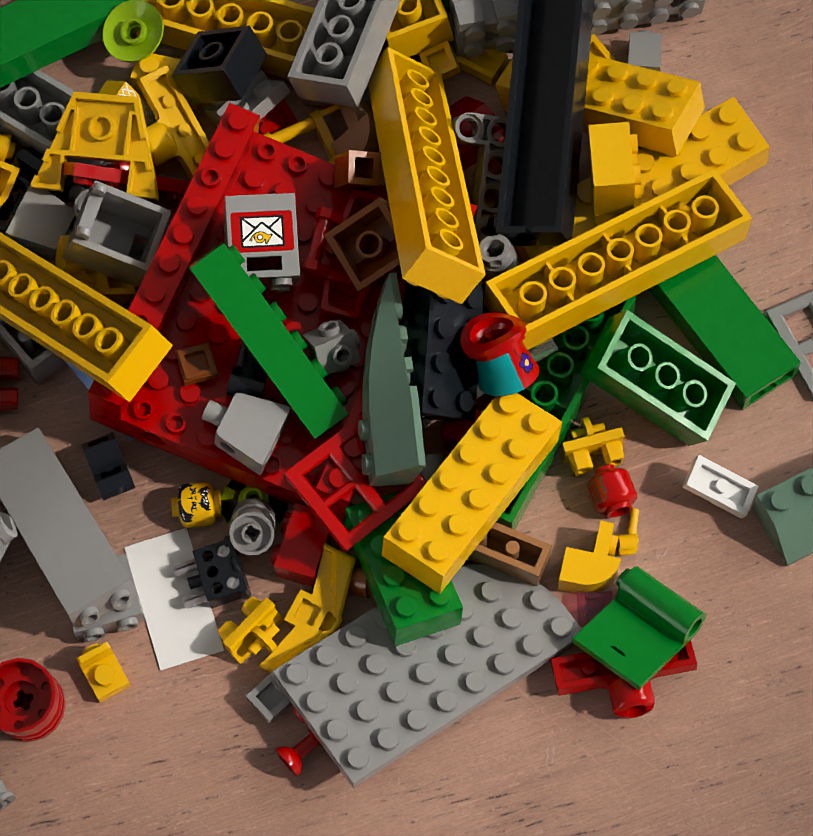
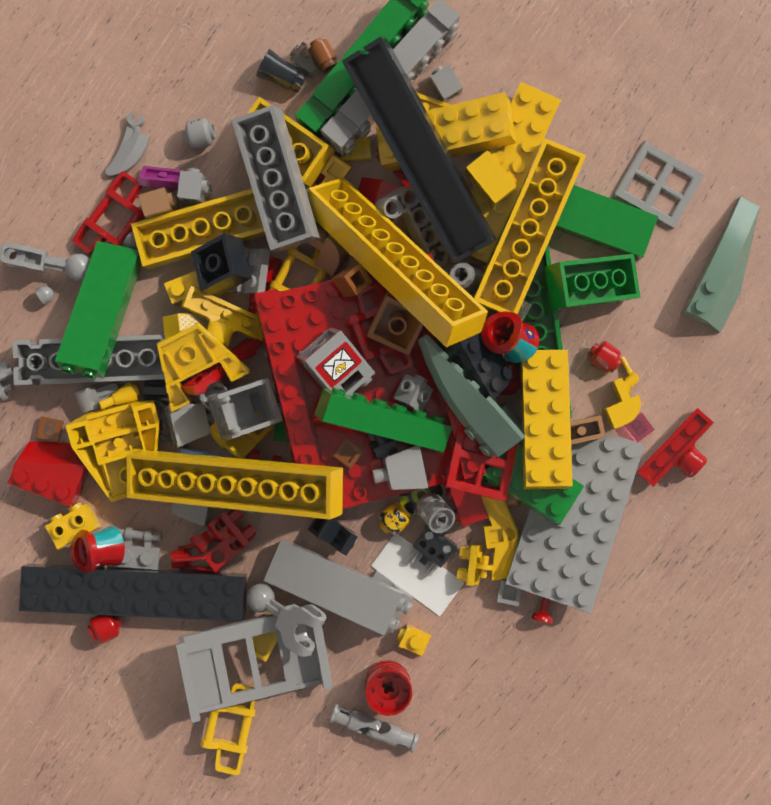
camera: 35 degrees left, 20 degrees up
(125, 22) = (144, 280): lime dish -> none
(592, 441) = (586, 333): yellow hips -> none
(640, 628) = (673, 422): green door -> none
(720, 486) = (660, 316): white plate -> none

